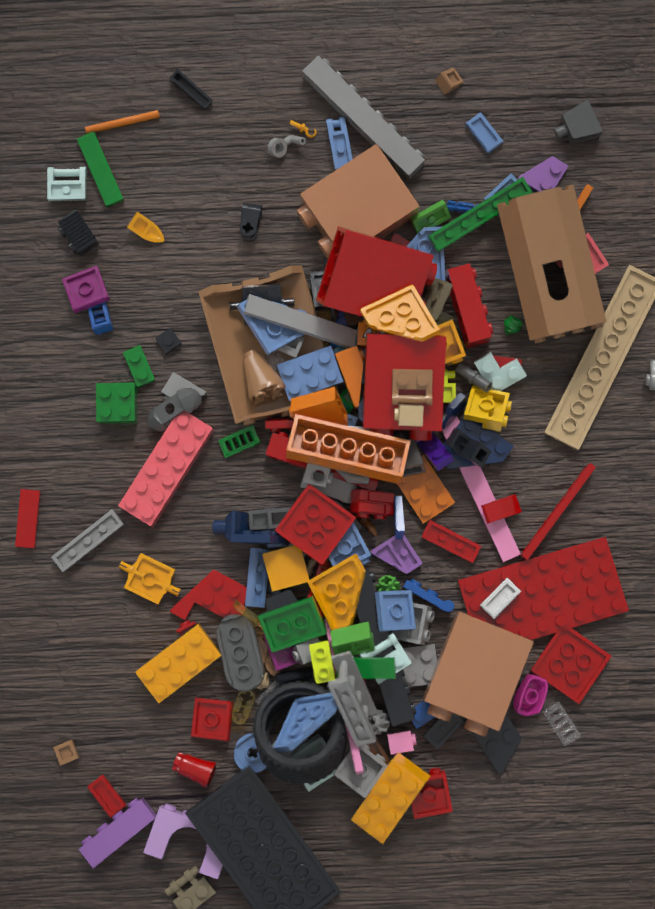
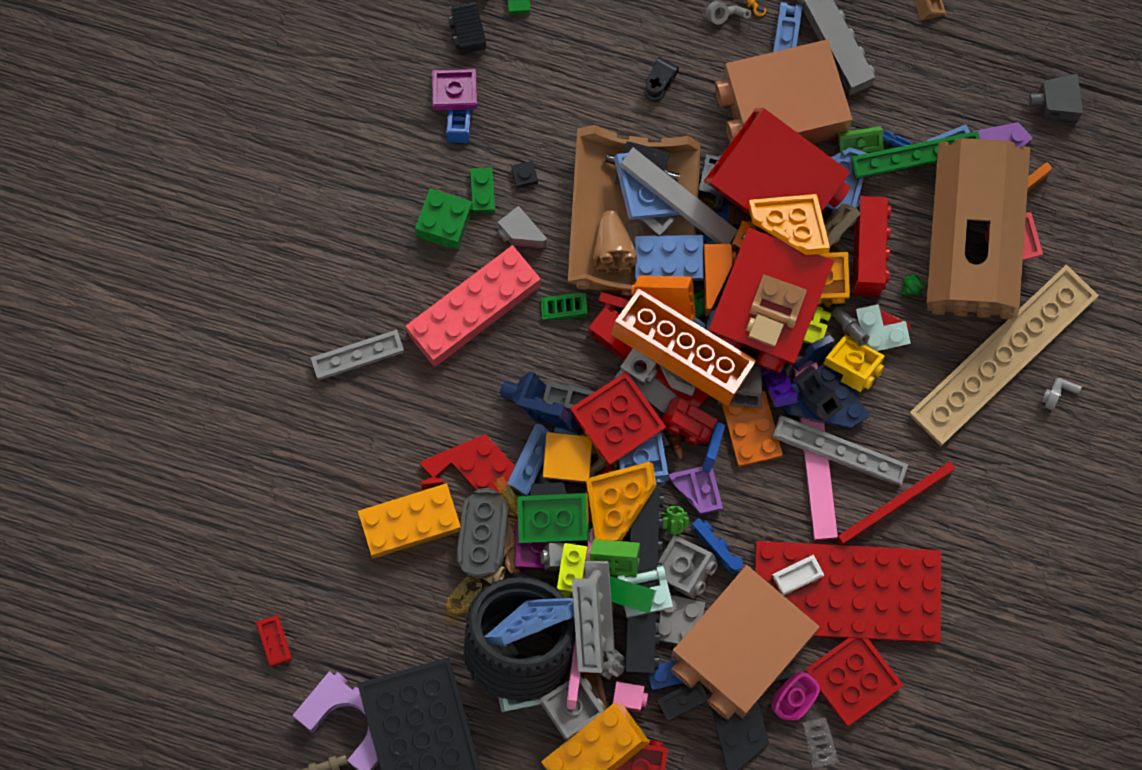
camera: 15 degrees right, 10 degrees down
(27, 518) = (299, 309): red tile -> none
(66, 752) = (247, 576): medium nougat plate -> none
(117, 832) = (271, 685): medium lavender brick -> none
(145, 228) = (543, 48): light orange plate -> none
(149, 578) = (410, 419): light orange plate -> none
(184, 400) = (519, 237): dark grey piece -> none
(195, 768) = (384, 645): red plant -> none
(212, 719) = (424, 597): red tile -> none
(241, 754) = (445, 644): medium blue plate -> none
(395, 610) = (674, 544): medium blue plate -> none
(451, 541) = (763, 496): red plate -> none
(484, 133) = (950, 74): medium blue tile -> none
(499, 483) = (840, 451): none -> light grey tile
(501, 508) = (832, 478): red slope -> none

